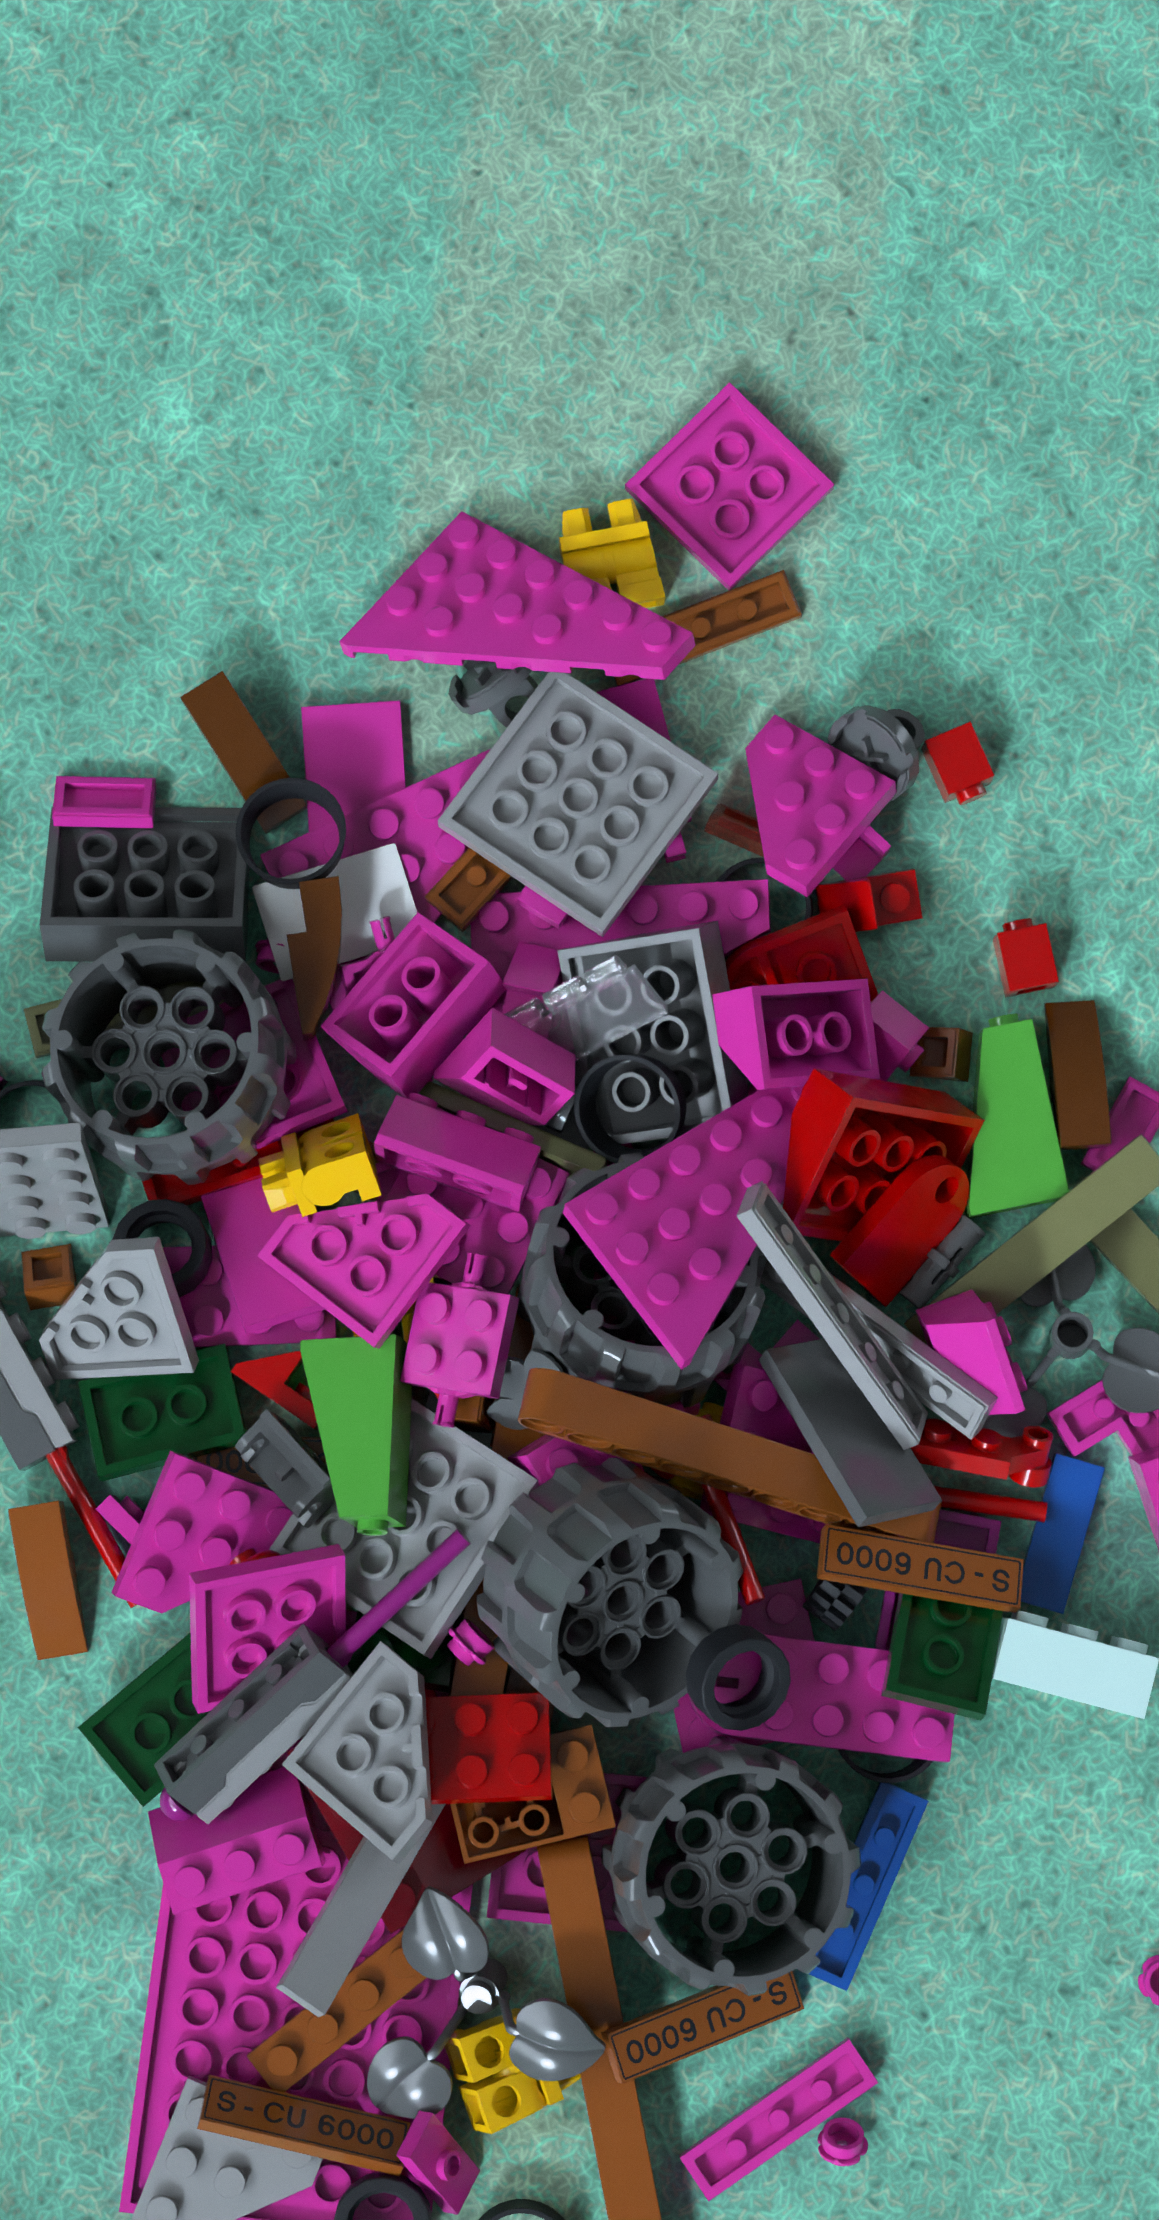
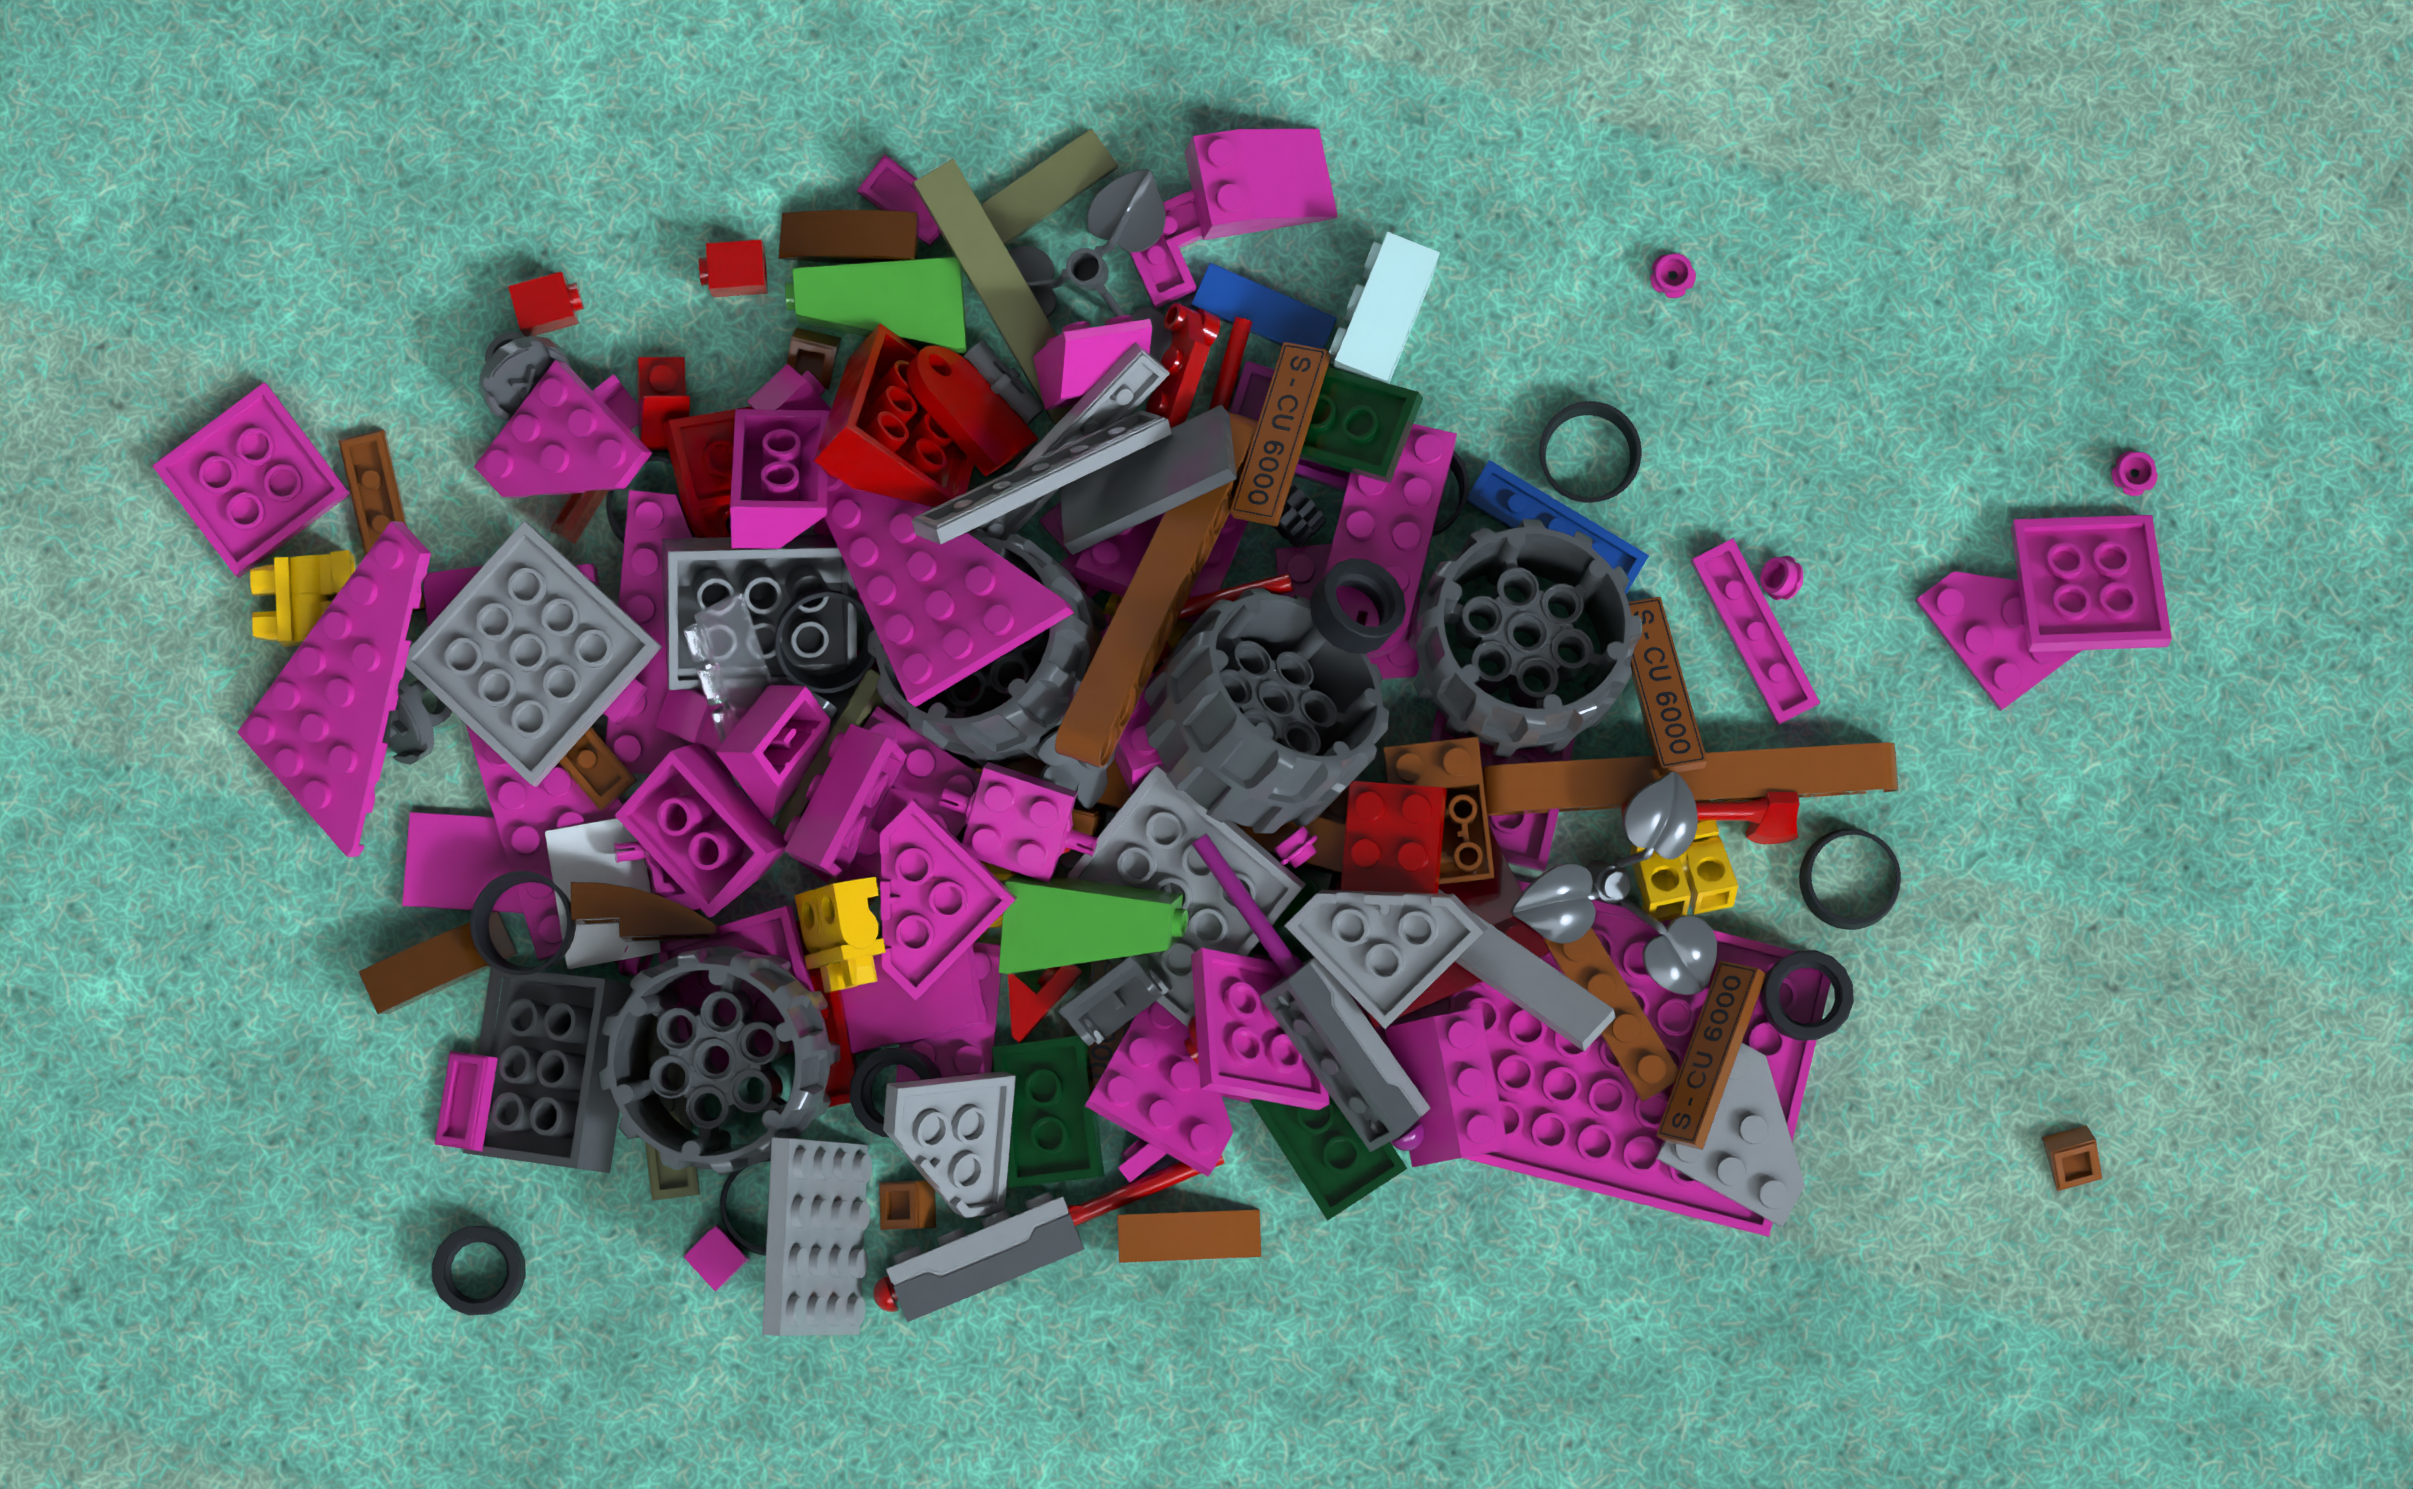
camera: 85 degrees left, 0 degrees up
(438, 2162) = (1758, 939): dark pink plate -> none
(572, 2157) = (1771, 817): none -> red piece
(990, 1943) = (1609, 413): none -> black tyre

